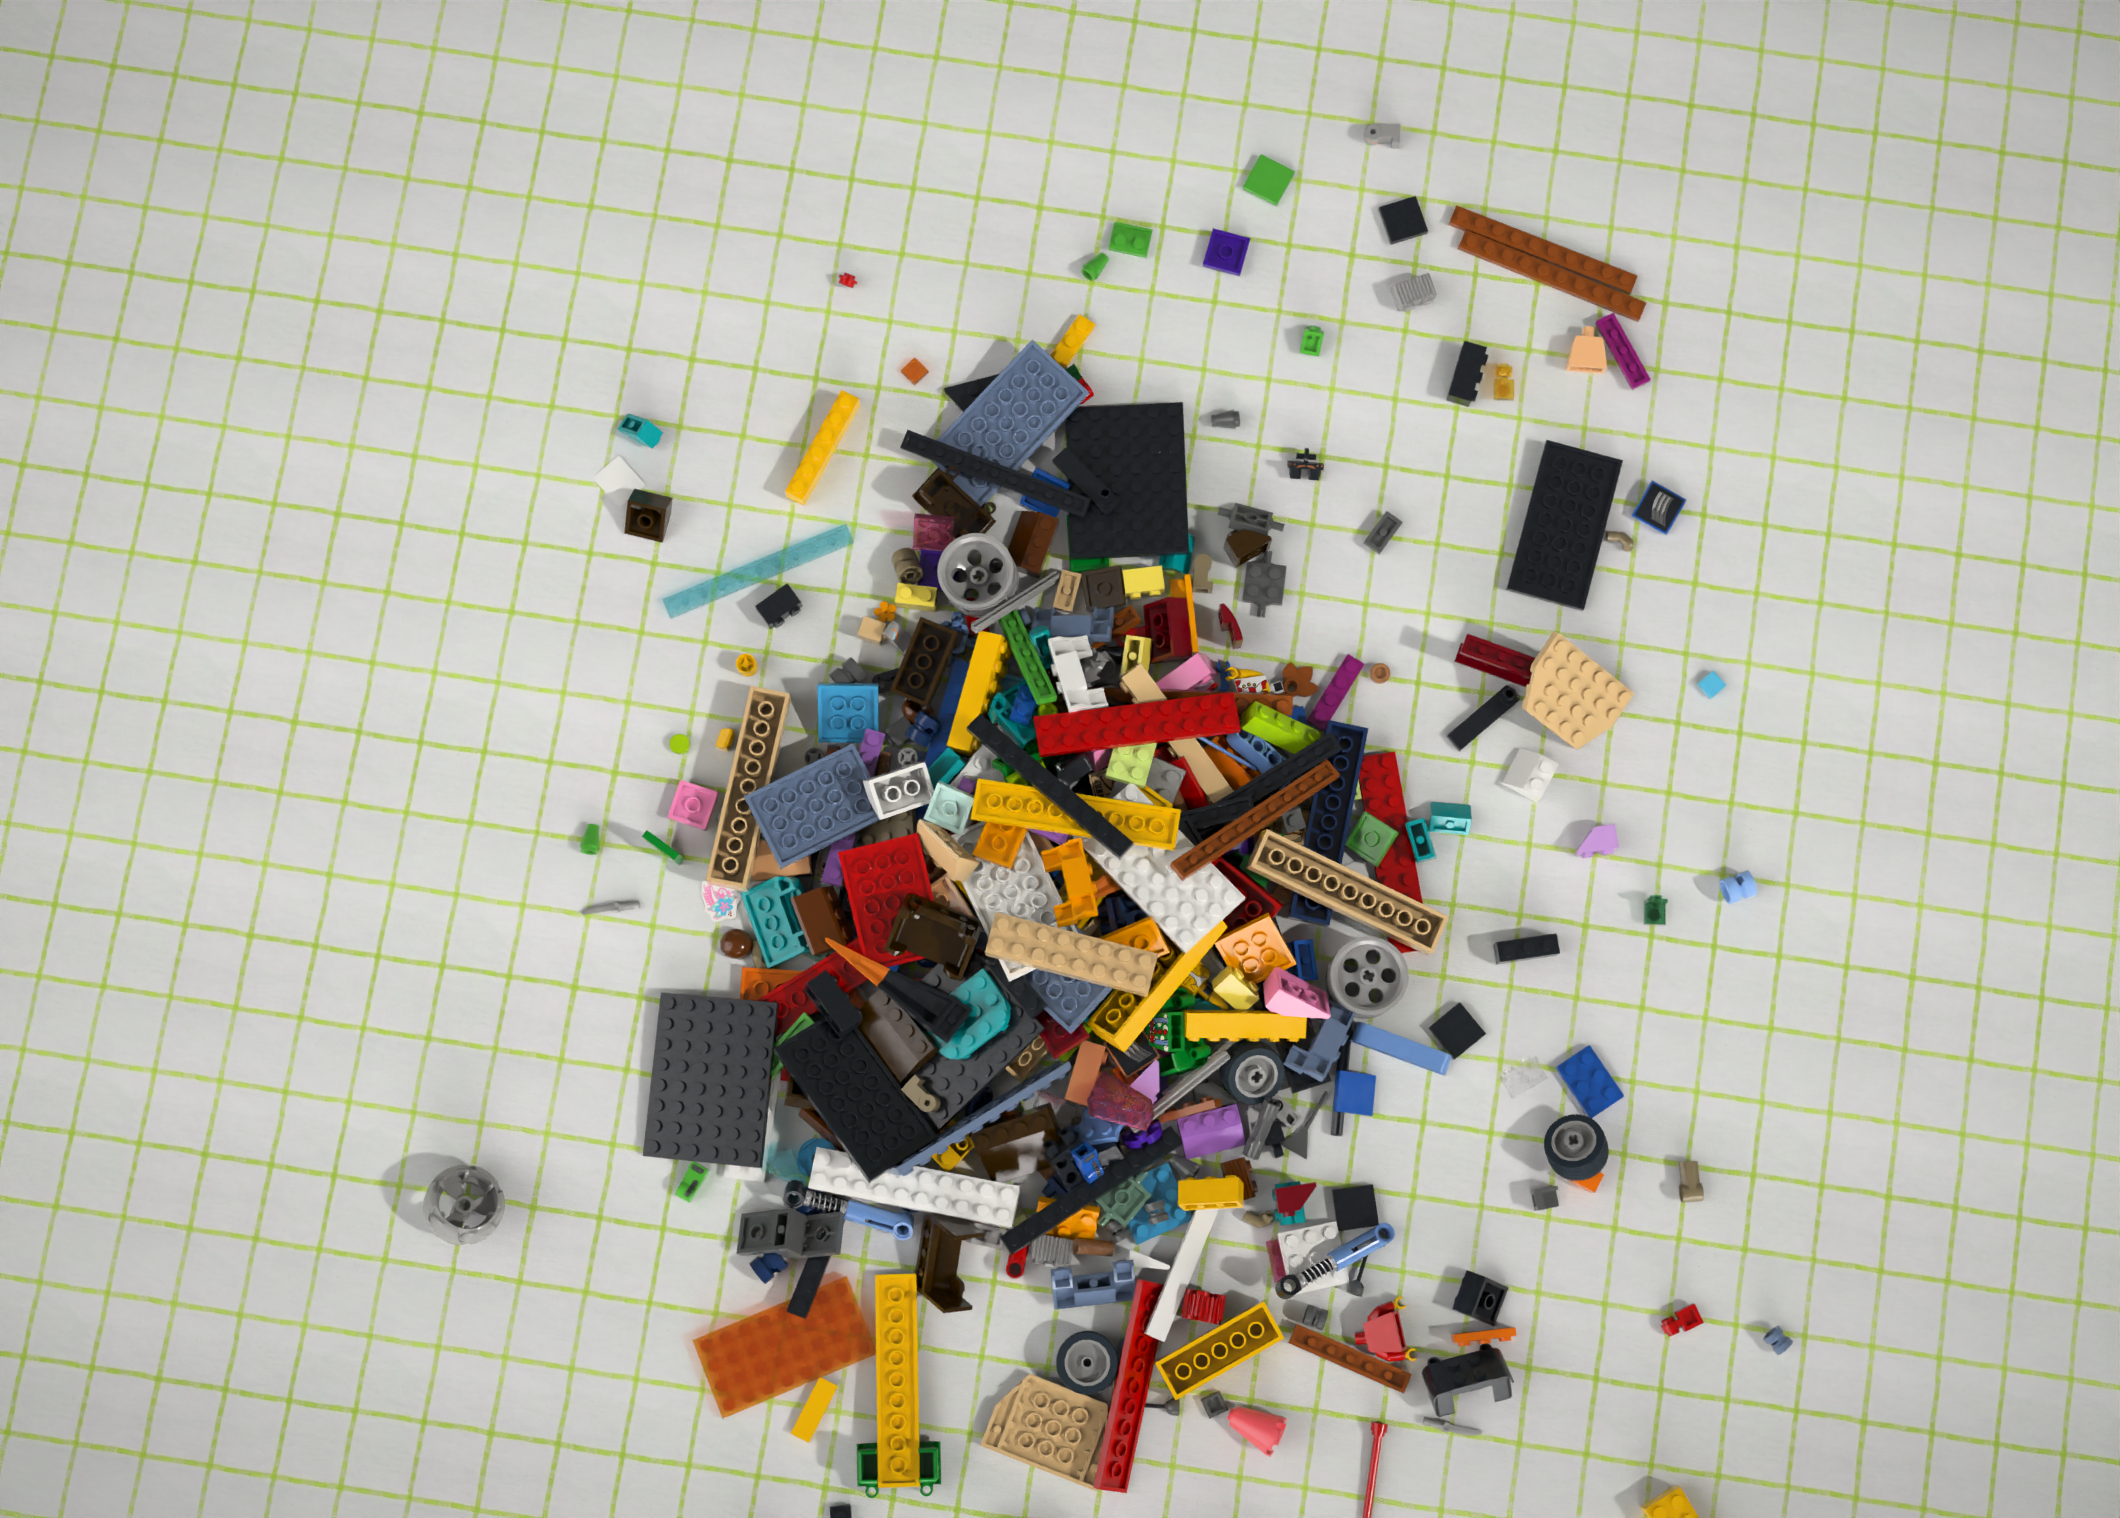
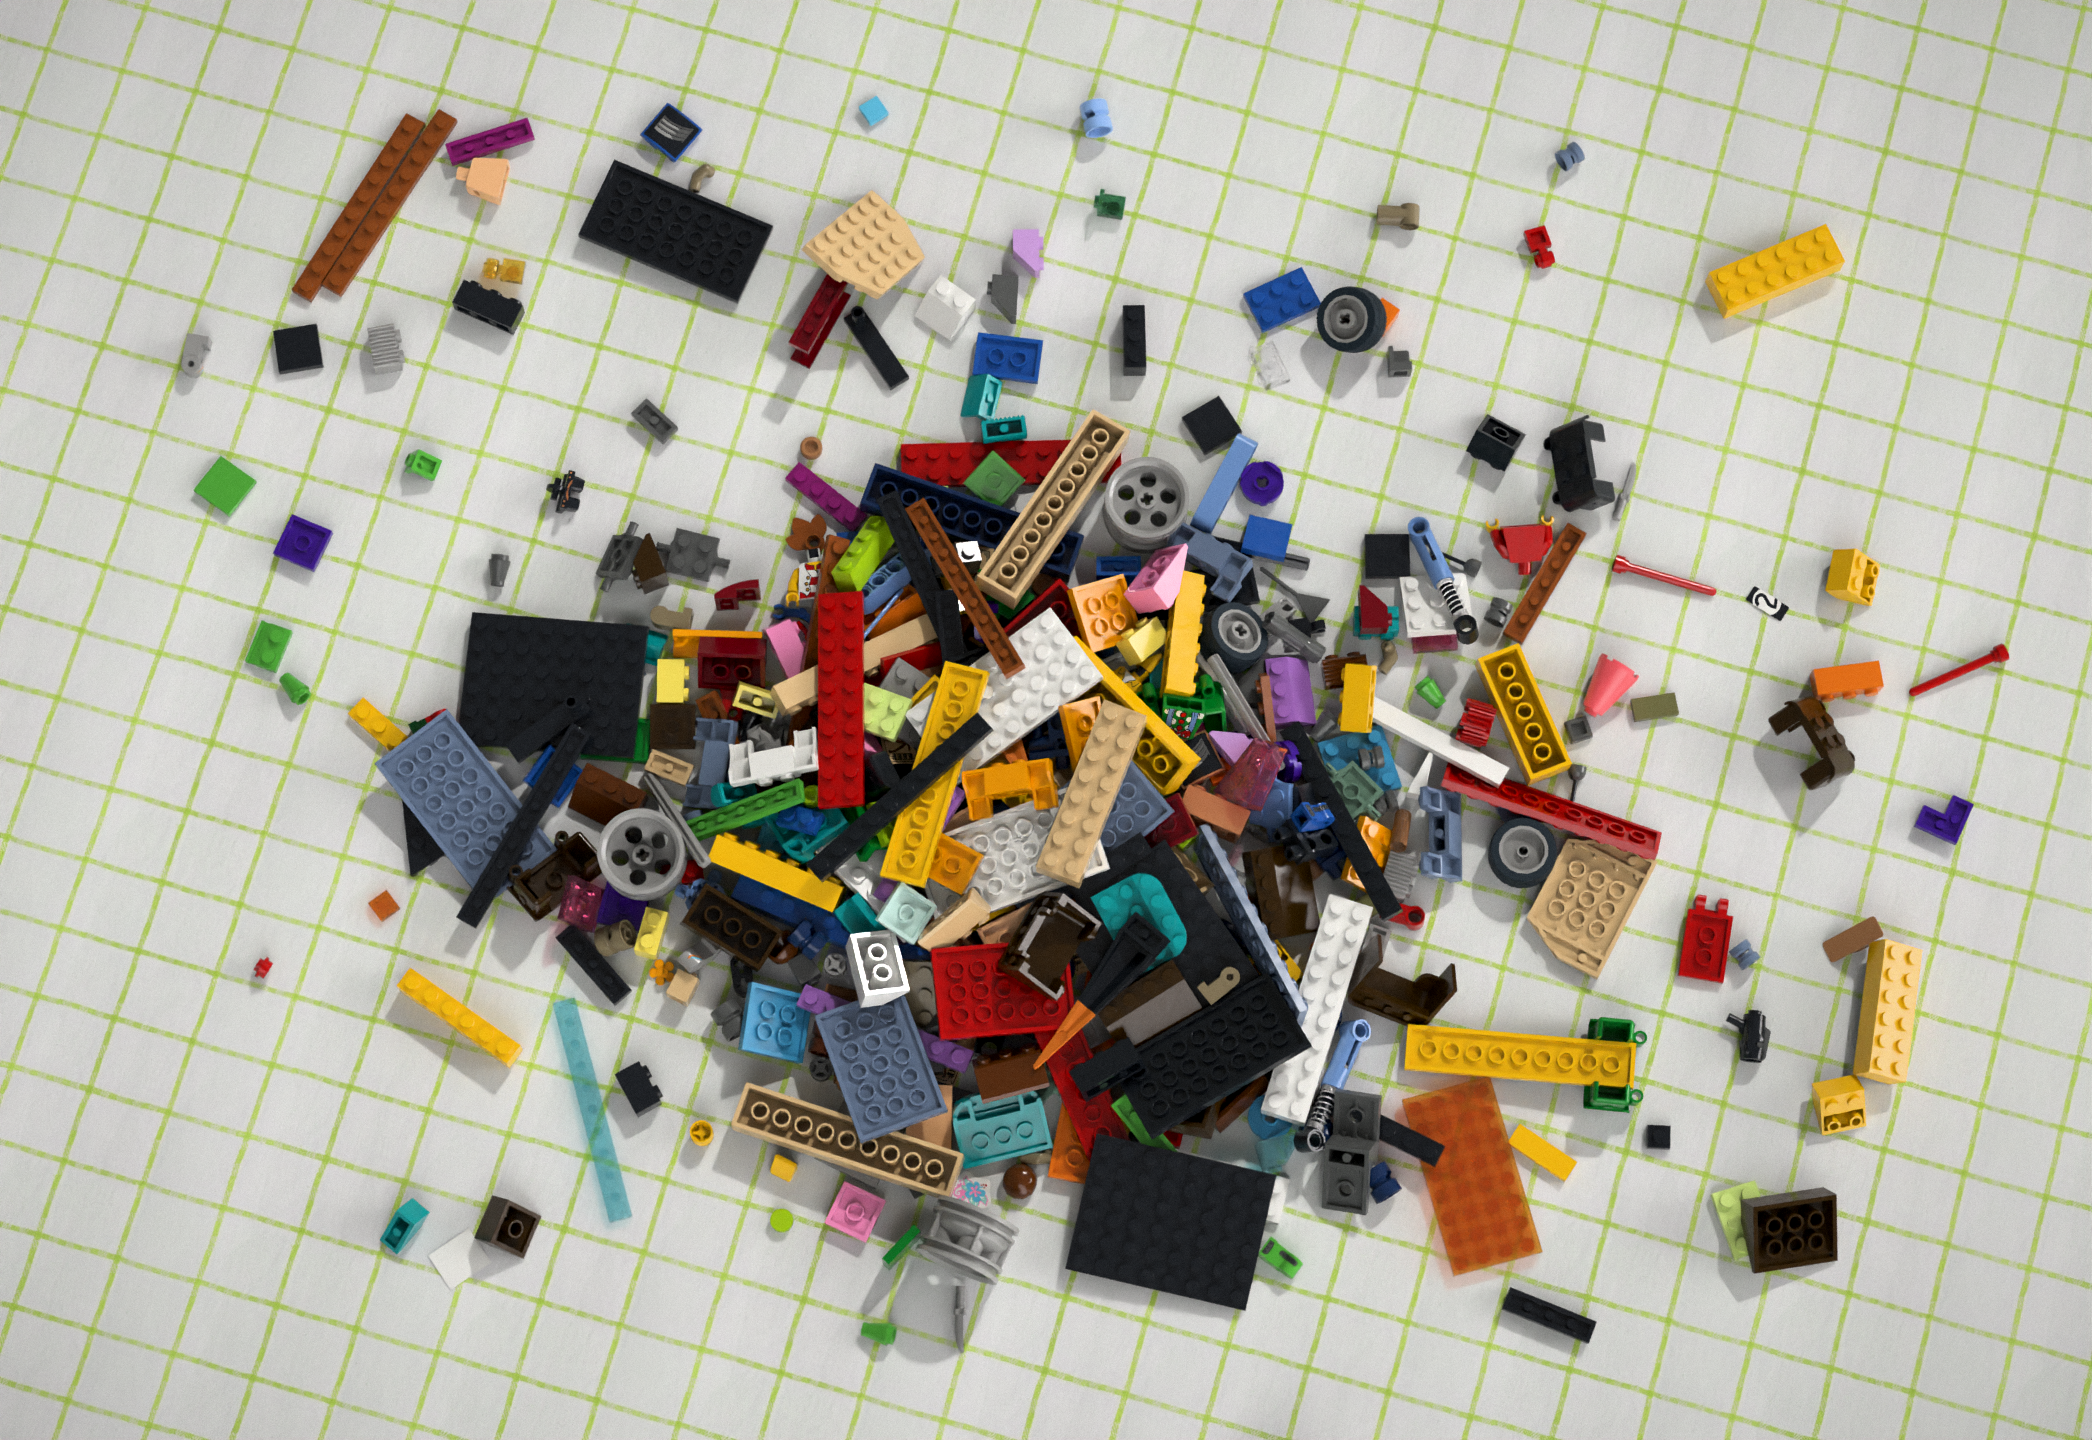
camera: 85 degrees left, 5 degrees down
(666, 1430) = (1549, 1315): none -> black plate
(670, 902) = (968, 1240): none -> light grey wheel
(883, 552) = (593, 964): none -> black plate
(1230, 1261) = (1430, 692): none -> bright green cone
(1245, 1475) = (1654, 707): none -> olive tile
(1419, 1081) = (1262, 495): none -> dark purple plate
(1484, 1336) = (1536, 444): orange plate -> none
(1491, 836) = (1008, 357): none -> blue plate
(1552, 826) = (1004, 295): none -> dark grey slope

